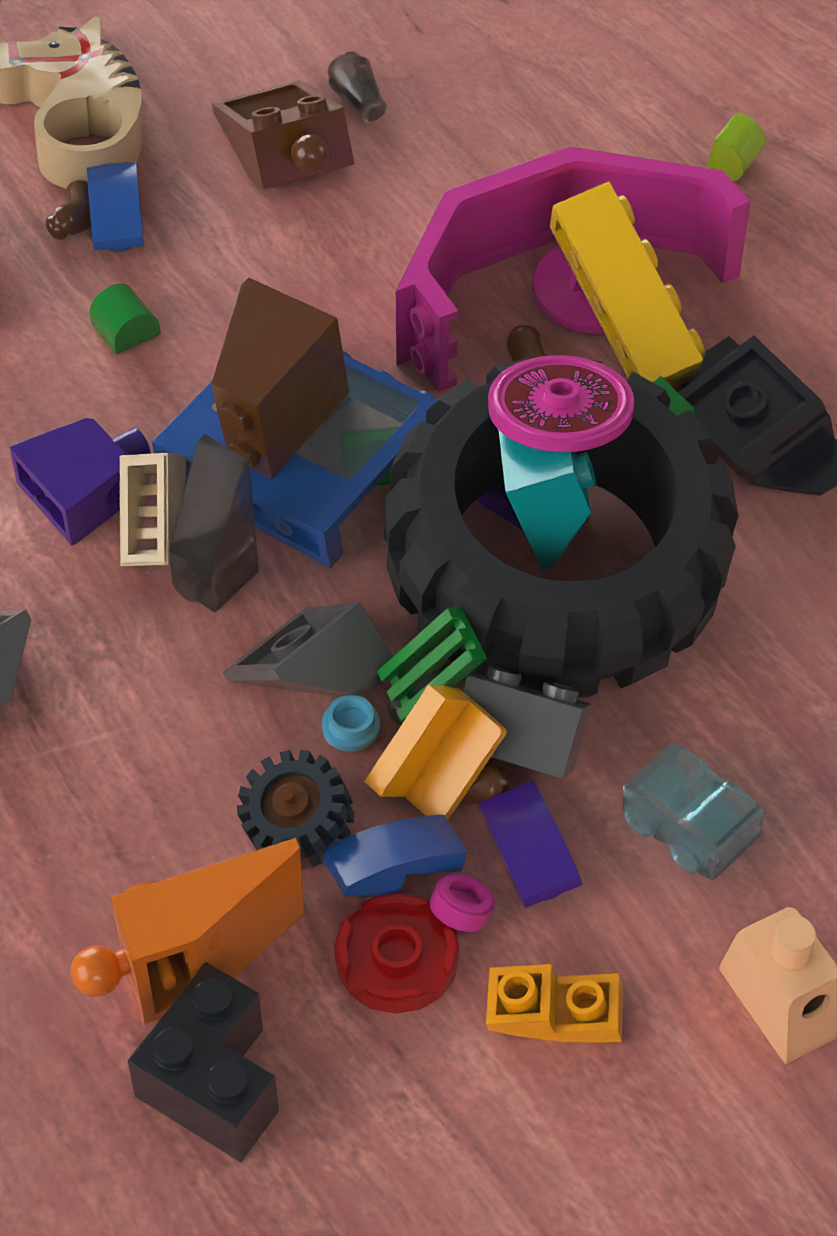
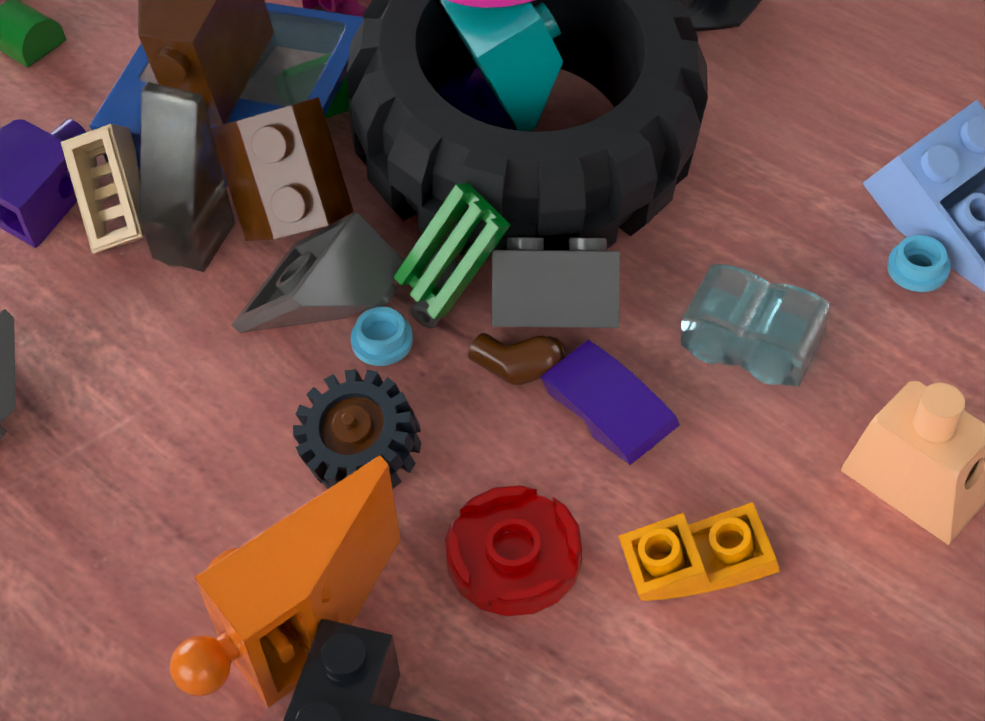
camera: 15 degrees left, 0 degrees up
(310, 542) = (282, 171): none -> reddish brown slope
(383, 855) = (467, 453): blue slope -> none
(437, 751) = (486, 336): light orange panel -> none
(462, 902) = (563, 478): dark pink tile -> none

